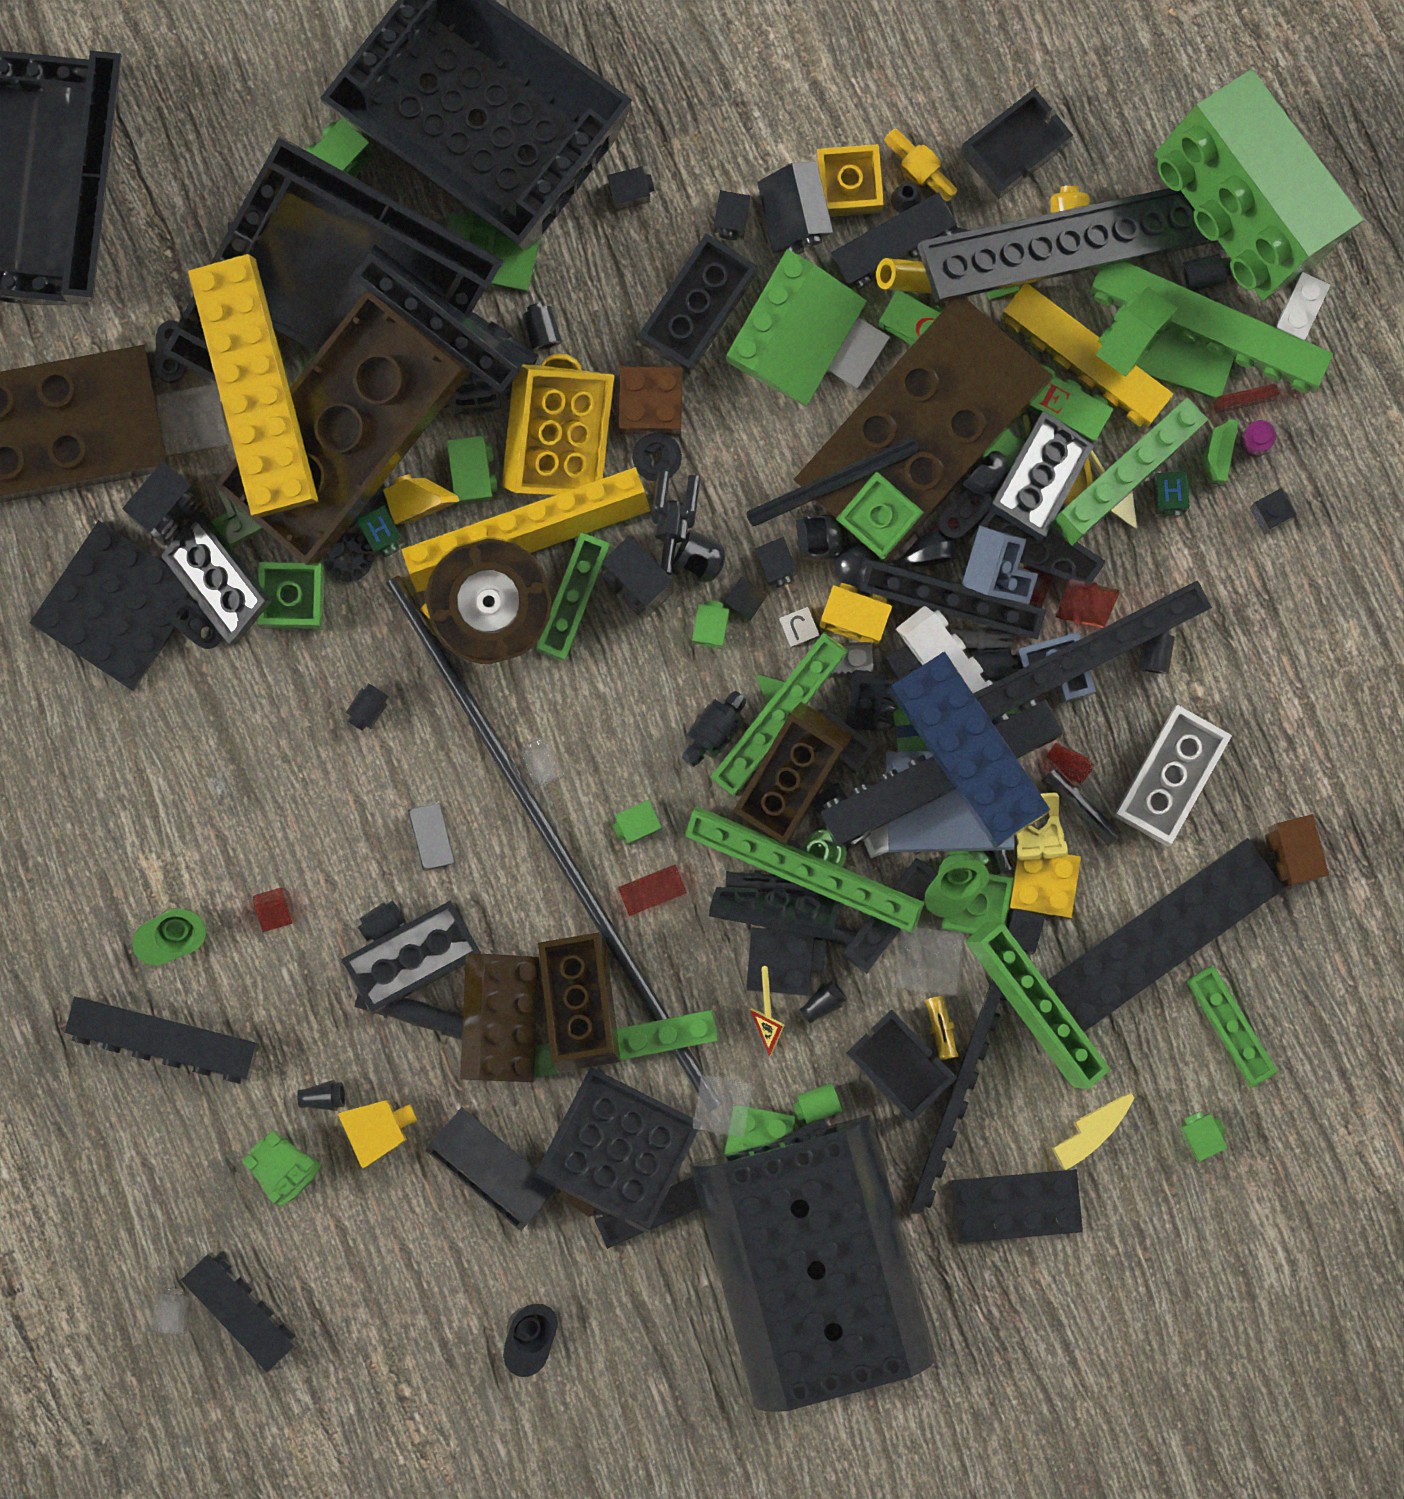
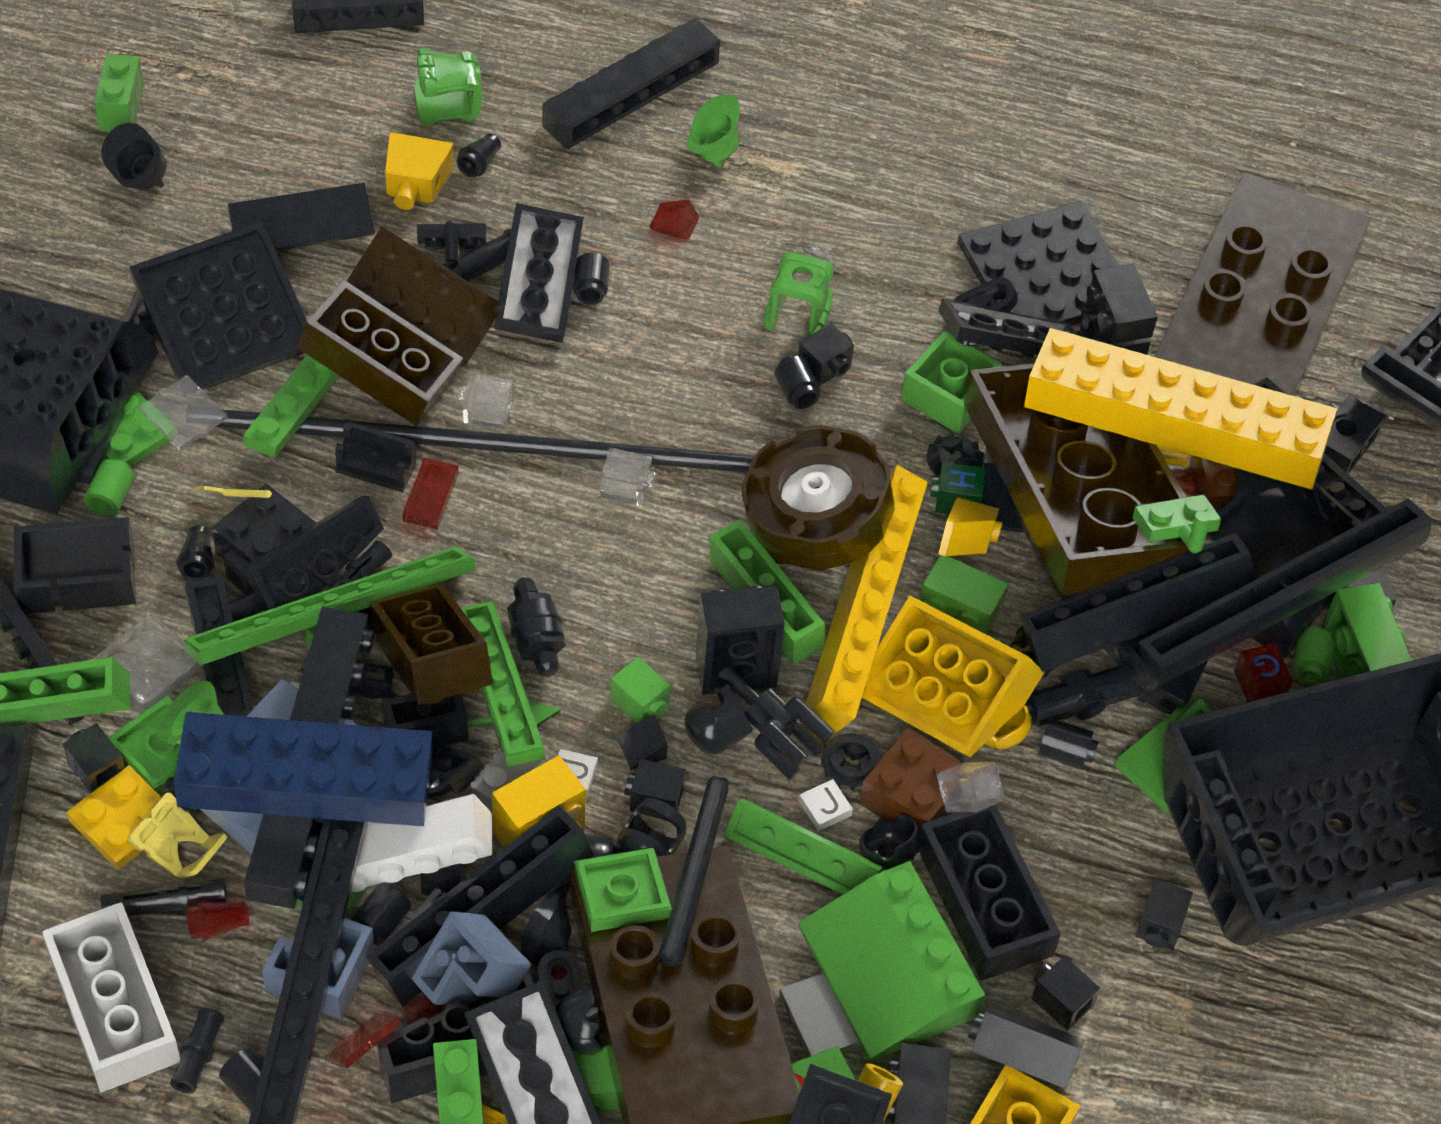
camera: 120 degrees right, 30 degrees down
(111, 288) = (1352, 432): none -> black brick
(303, 768) = (813, 291): none -> bright green piece
(325, 703) = (827, 353): none -> black brick
(365, 321) = (1183, 518): none -> bright green plate
(418, 1049) = (451, 237): none -> black plate
(431, 836) = (636, 359): slope -> none
(471, 1409) = (119, 91): none -> bright green brick
(550, 909) = (486, 401): none -> clear brick
(636, 823) = (503, 514): bright green brick -> none
(643, 352) = (971, 787): none -> clear brick
(657, 946) = (375, 457): none -> black hinge
(702, 452) = (825, 805): none -> white tile
(705, 389) = (891, 841): none -> black hair
(751, 440) = (798, 848): none -> bright green plate
(936, 1006) = (74, 630): yellow pin -> none
(1161, 702) = (197, 1050): none -> black pin

